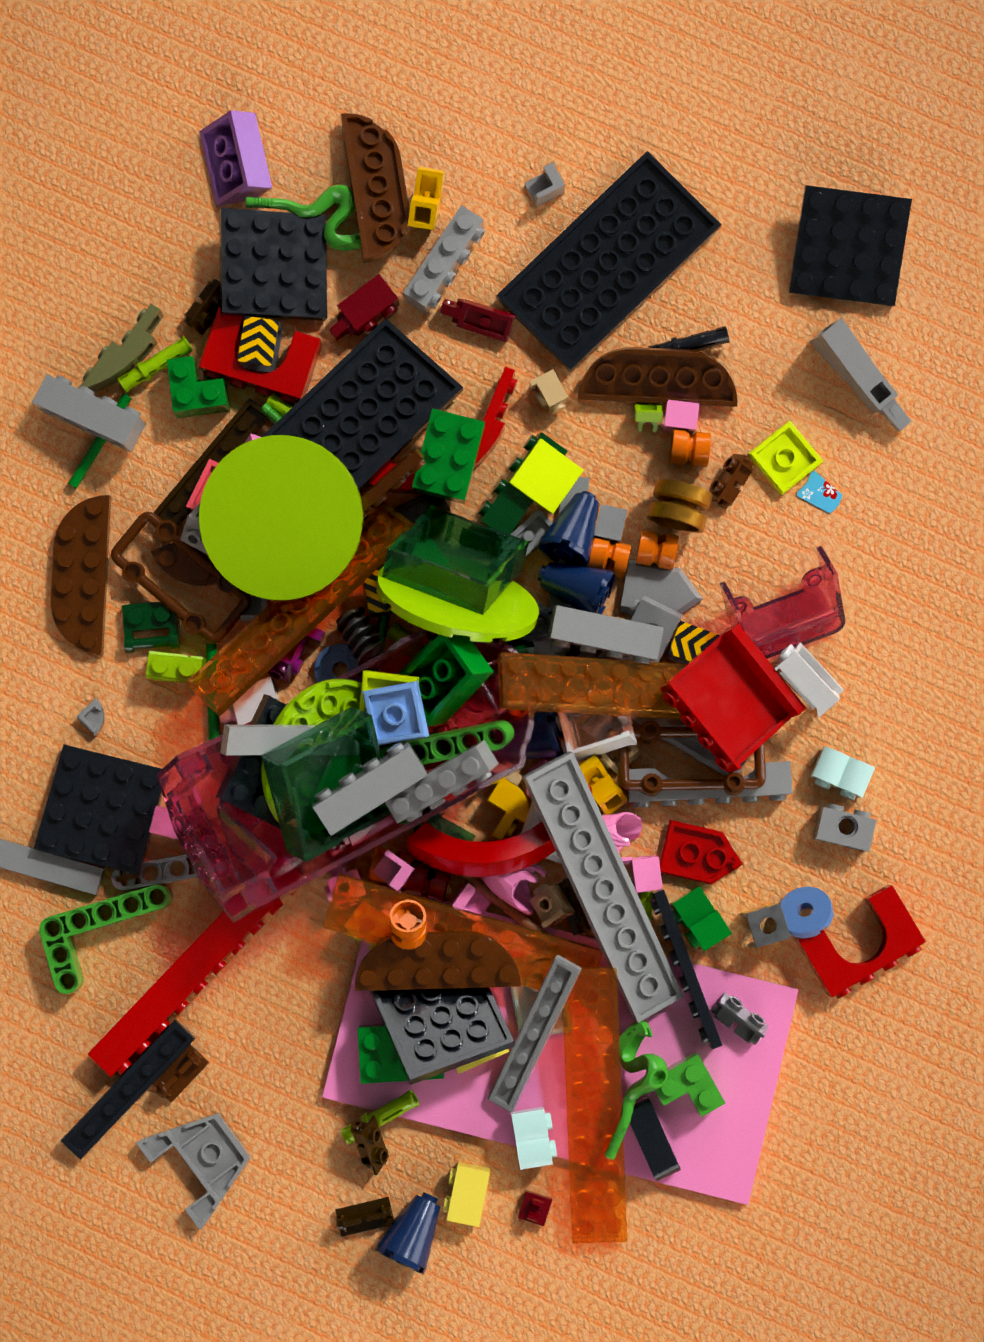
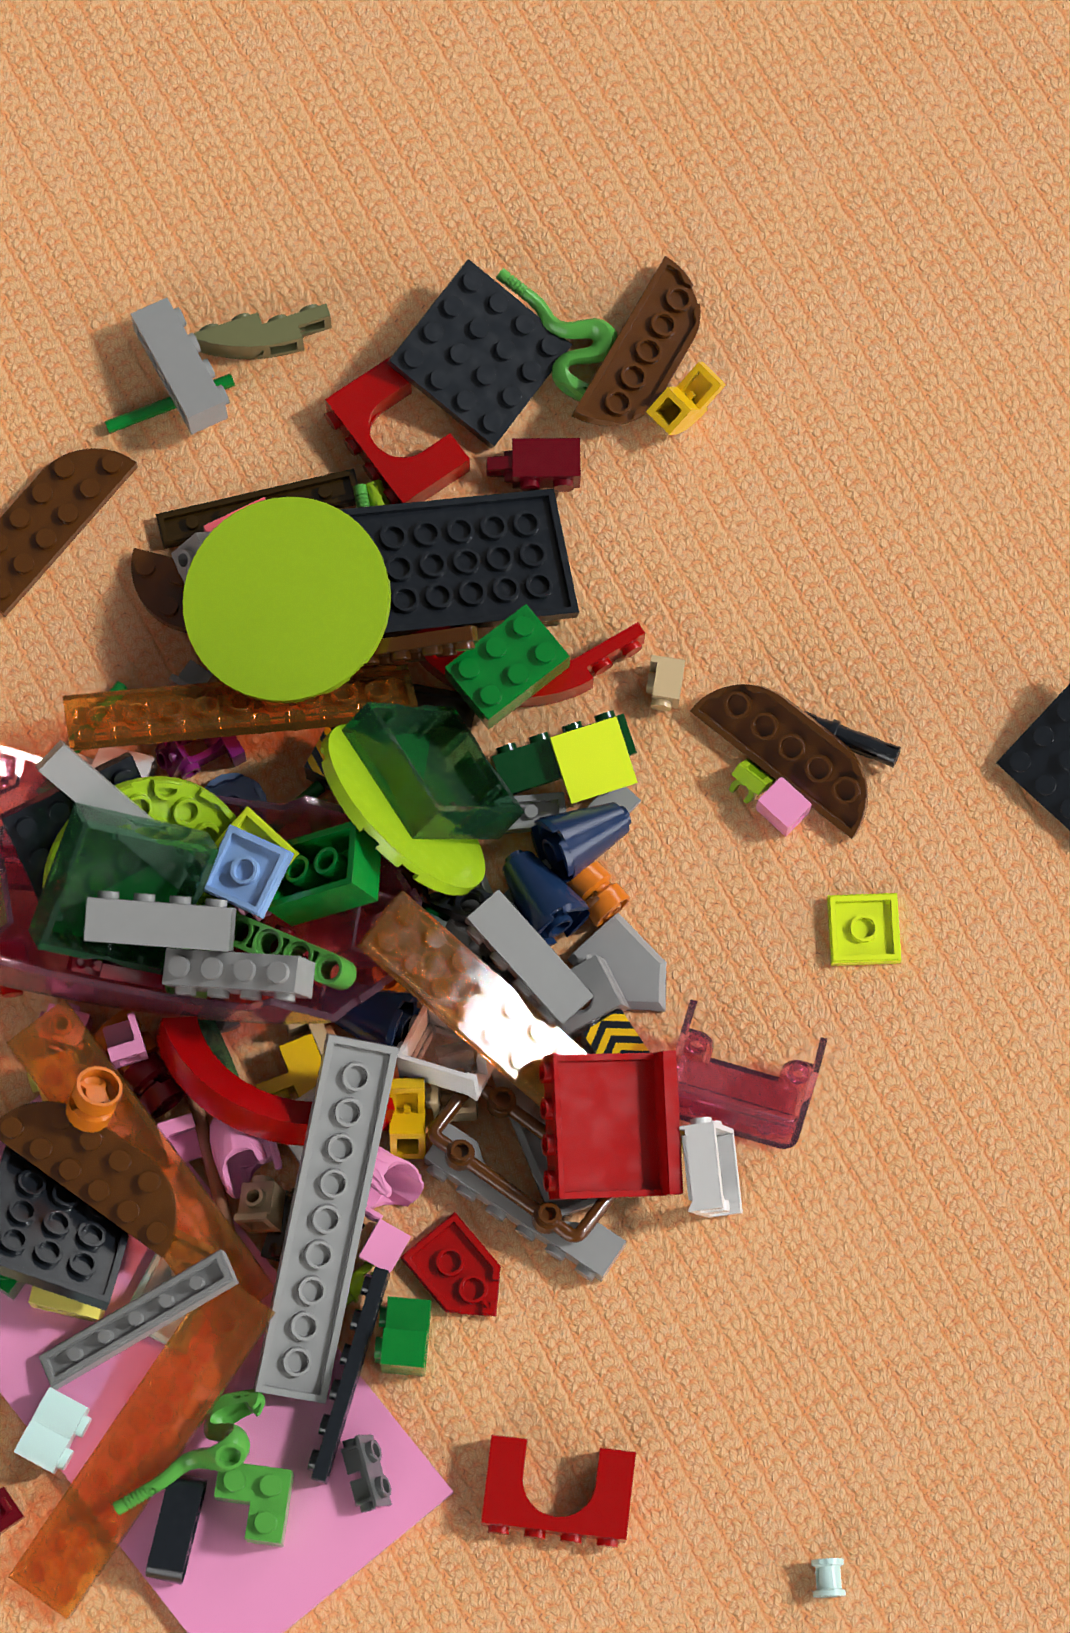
camera: 30 degrees right, 10 degrees down
(135, 573) = (101, 557): reddish brown bar -> none
(149, 617) = (82, 614): dark green plate -> none
(150, 367) = (278, 367): lime pin -> none
(172, 667) = (61, 673): lime brick -> none
(192, 396) = (297, 422): green brick -> none
(202, 316) = (368, 352): dark brown hinge -> none
(235, 158) = (524, 224): medium lavender slope -> none
(260, 344) = (405, 422): piece -> none
(359, 635) = (280, 776): flat silver piece -> none
(444, 259) = (658, 473): light grey brick -> none
(479, 318) = (650, 558): dark red hinge -> none
(545, 186) = (821, 476): light grey panel -> none
(608, 261) = (829, 596): black plate -> none
(610, 523) = (626, 860): light grey panel -> none
(657, 549) = (654, 922): orange wheel -> none
(679, 506) = (710, 892): pearl gold wheel -> none
(690, 448) = (770, 845): orange wheel -> none
(737, 470) = (798, 902): reddish brown hinge -> none
(754, 919) = (469, 1411): flat silver piece -> none
(805, 898) = (525, 1398): medium blue tile -> none
(820, 493) = (873, 993): medium azure sticker -> none
(842, 772) = (674, 1298): light aqua brick -> none
(852, 363) = (1007, 895): light grey piece -> none
(861, 827) = (635, 1378): light grey brick -> none

